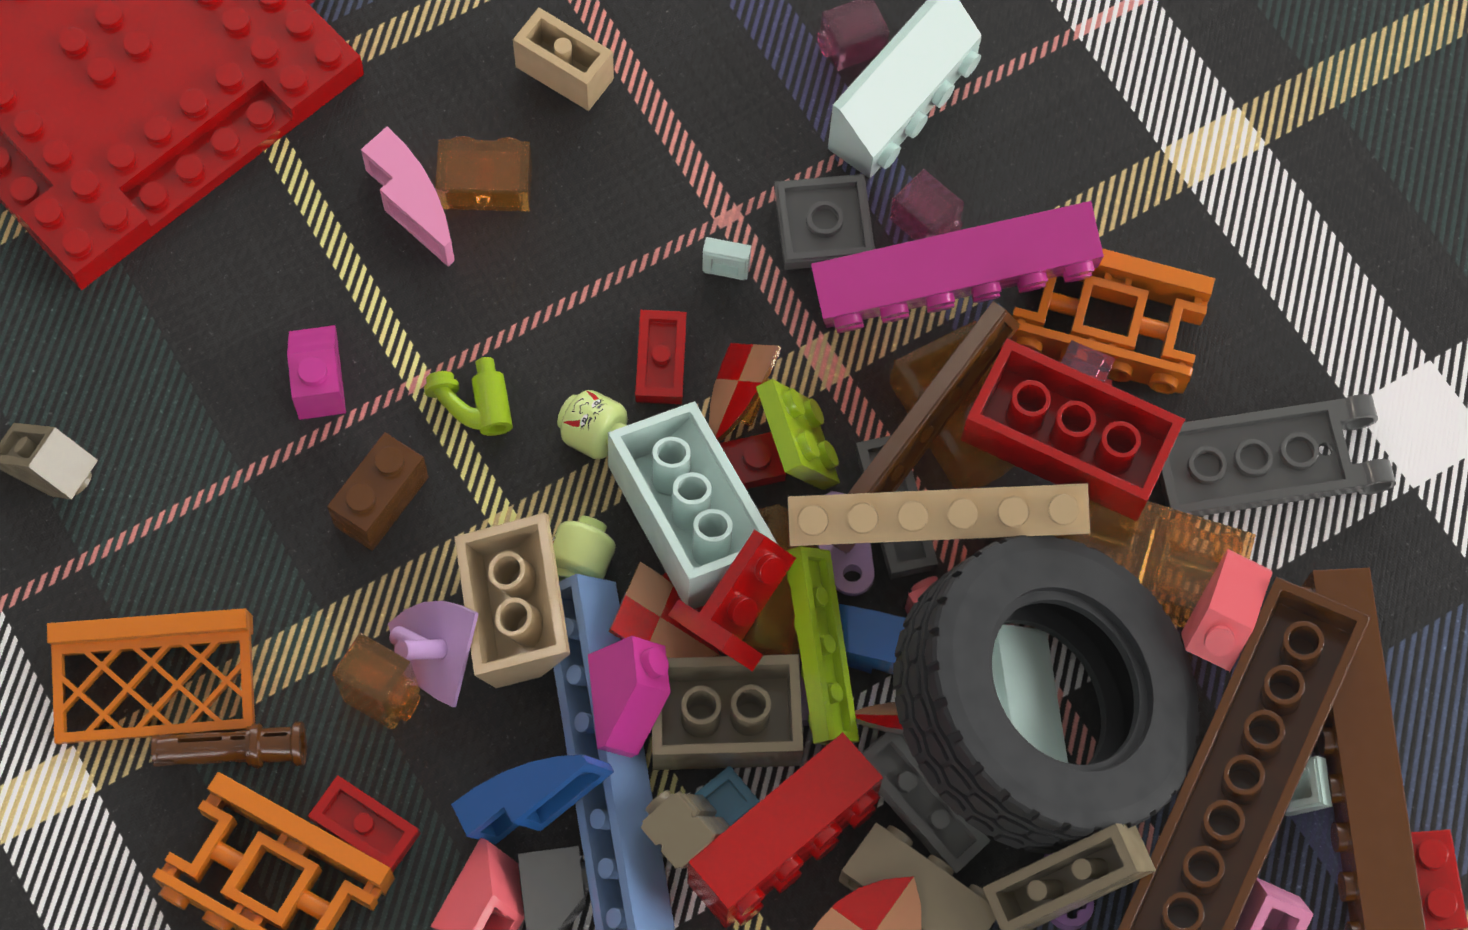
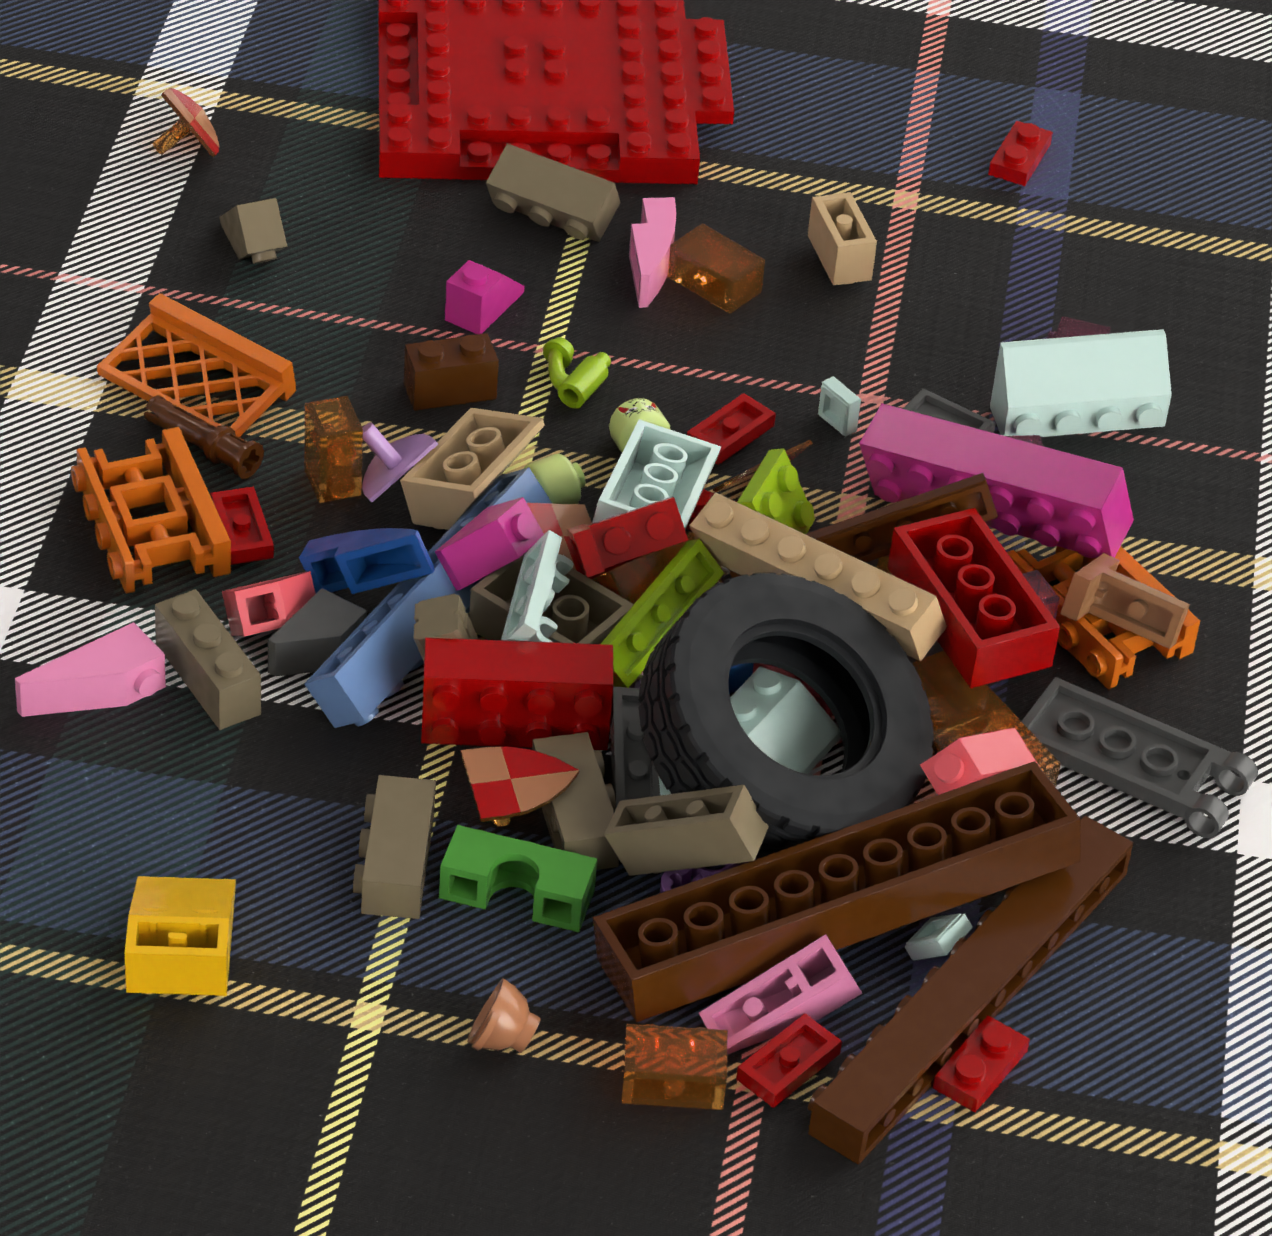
camera: 40 degrees right, 25 degrees down
(270, 202) = (552, 193): none -> dark tan brick
(724, 729) = (538, 581): none -> light aqua plate
(1152, 314) = (1124, 602): none -> medium nougat bracket

